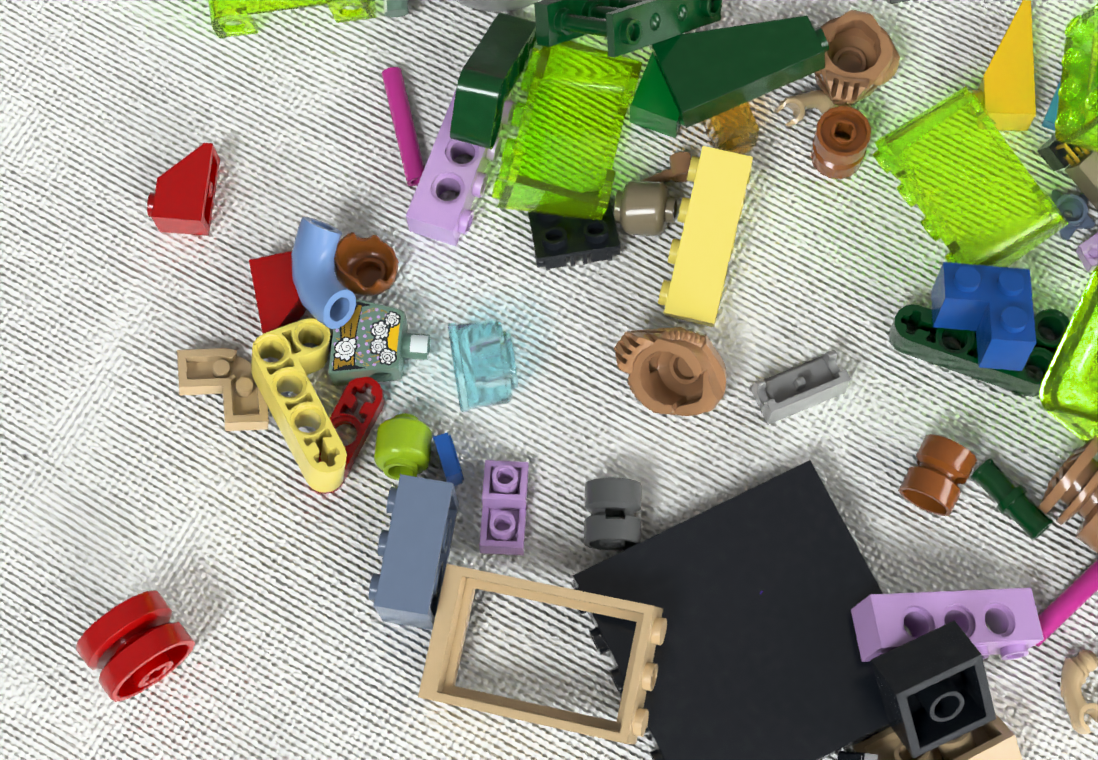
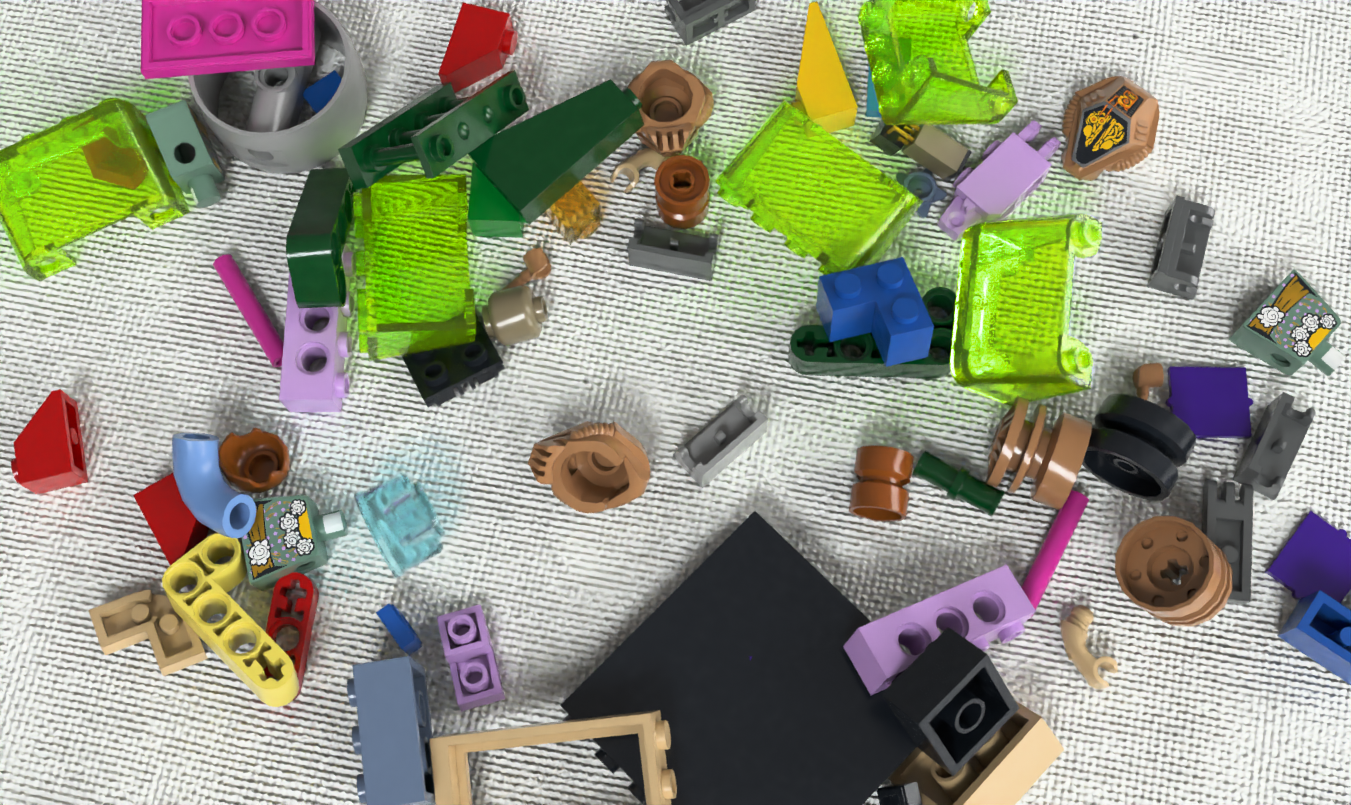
camera: 20 degrees left, 0 degrees up
(403, 446) = (349, 631): lime head -> none
(612, 499) = (575, 613): dark grey wheel -> none
(707, 235) = (583, 323): light yellow wedge -> none
(813, 196) = (673, 251): none -> dark grey hinge

